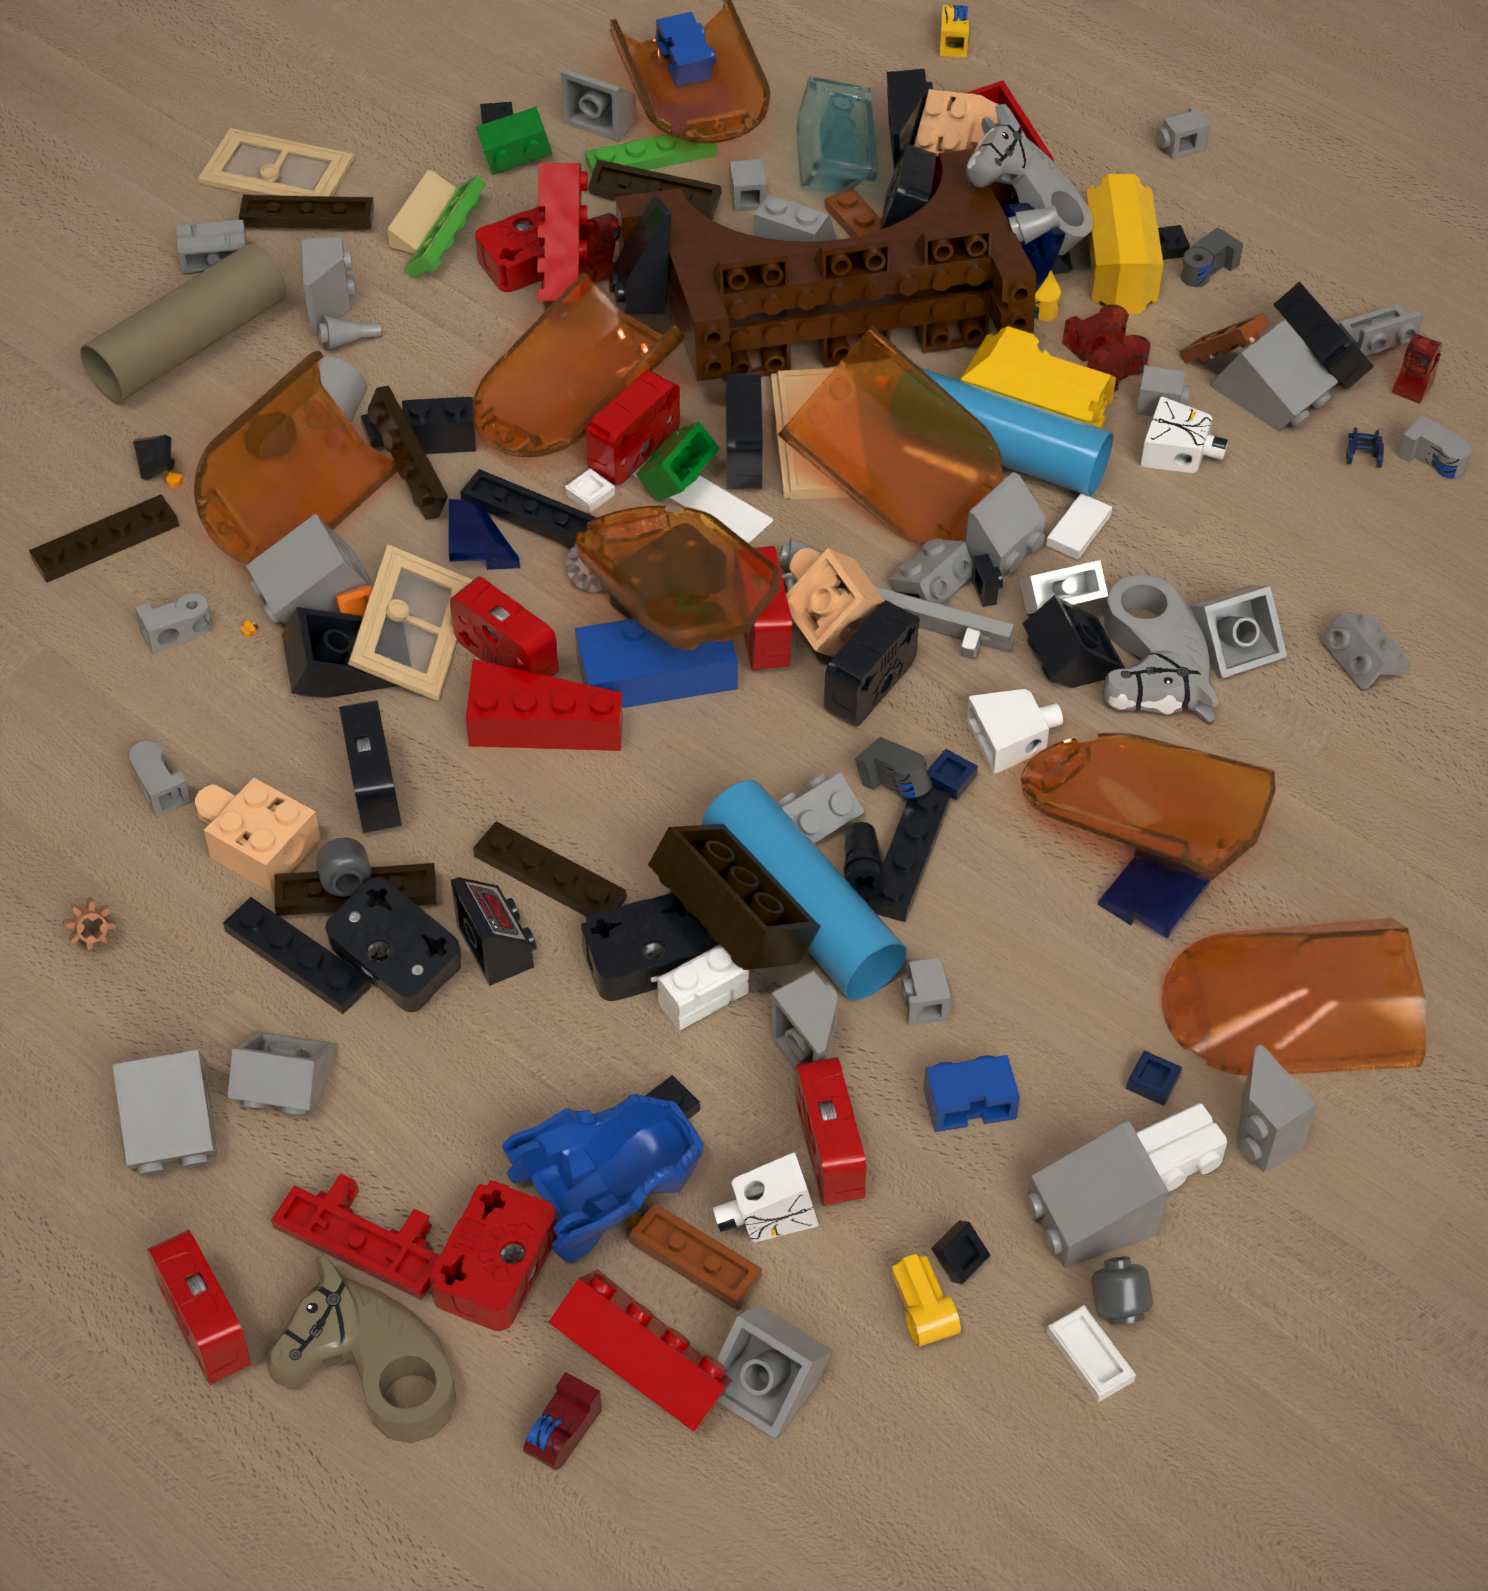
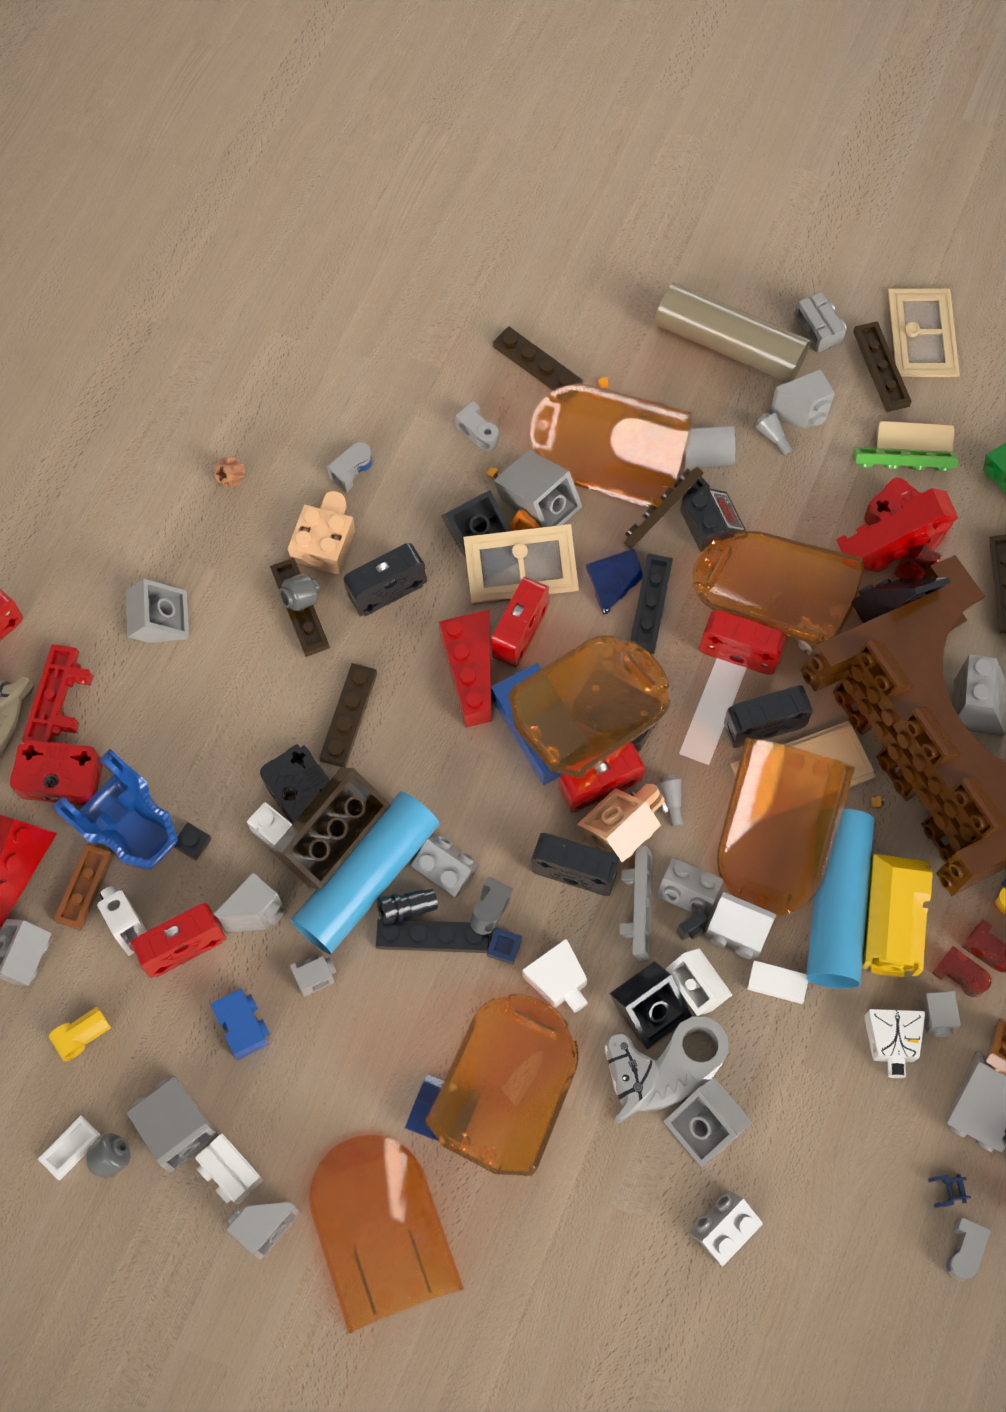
camera: 75 degrees right, 15 degrees up
(153, 455) = (614, 361): black piece -> none
(165, 1111) = (110, 561): light grey slope -> none
(297, 955) = (245, 592): black plate -> none
(400, 933) = (266, 634): black axle -> none
(492, 929) = (283, 692): black slope -> none
(590, 490) = (687, 635): white tile -> none
(678, 461) = (723, 682): green brick -> none
(960, 1251) = (119, 1046): black plate -> none
(1154, 1078) = (289, 1144): dark blue tile -> none

